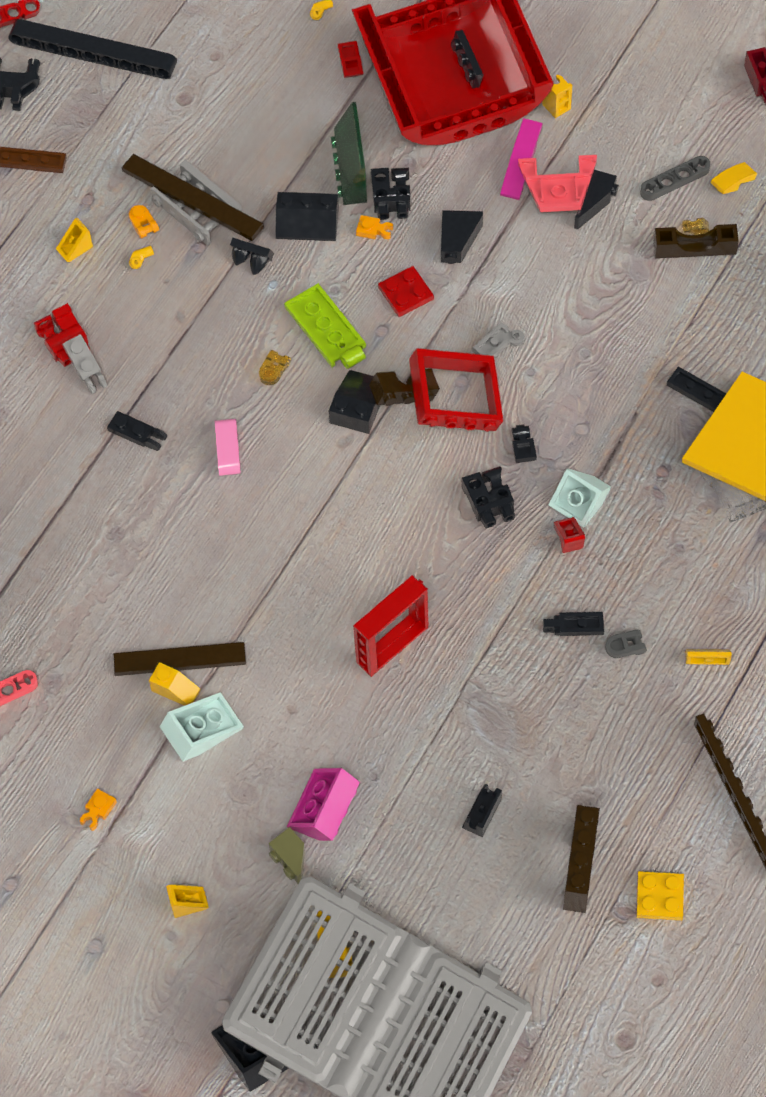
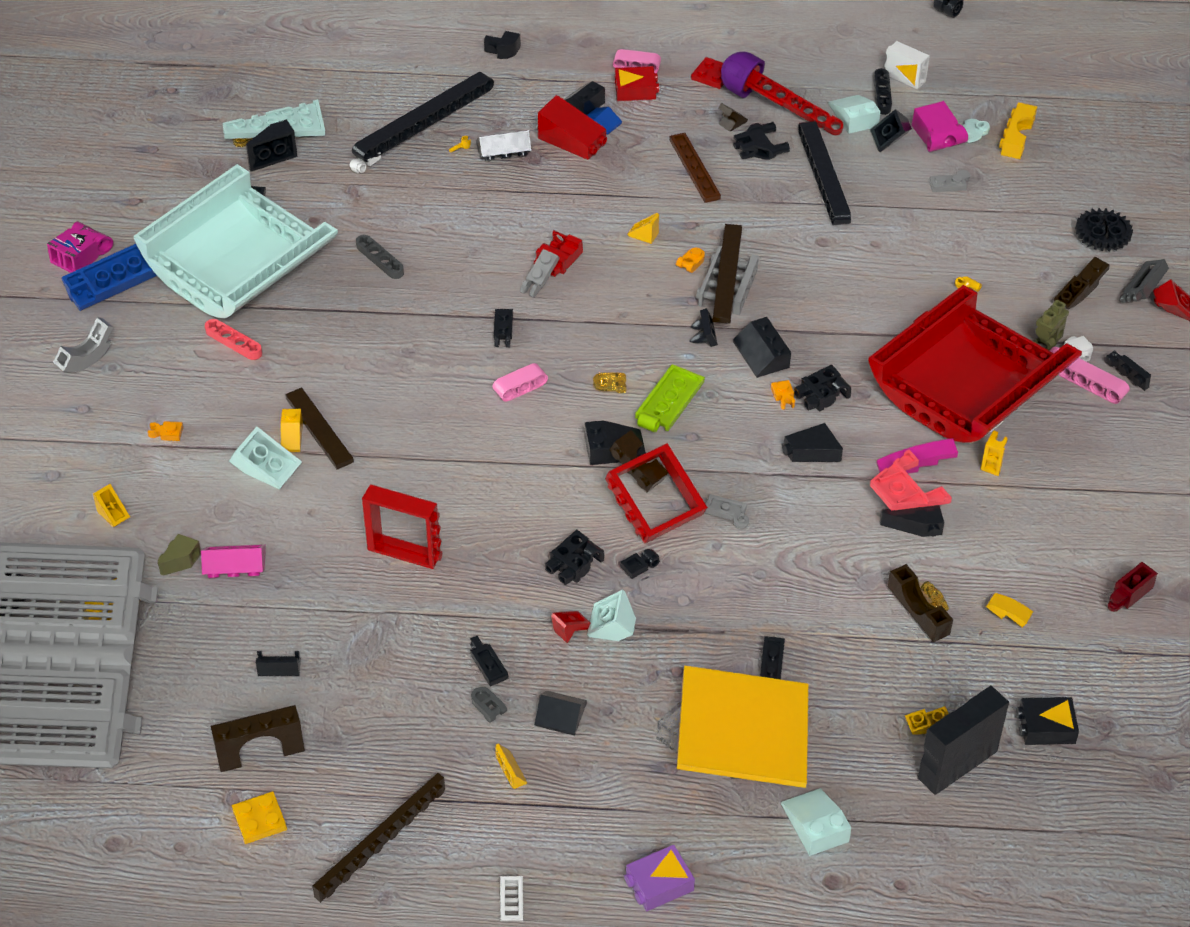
camera: 60 degrees right, 15 degrees down
(138, 256) = (658, 269): yellow arm -> none
(349, 158) = (834, 347): clear green slope -> none
(405, 291) = (737, 436): red plate -> none
(467, 59) = (984, 382): black plate -> none
(664, 586) = (559, 712): none -> black slope
(677, 180) = (978, 572): dark grey beam -> none

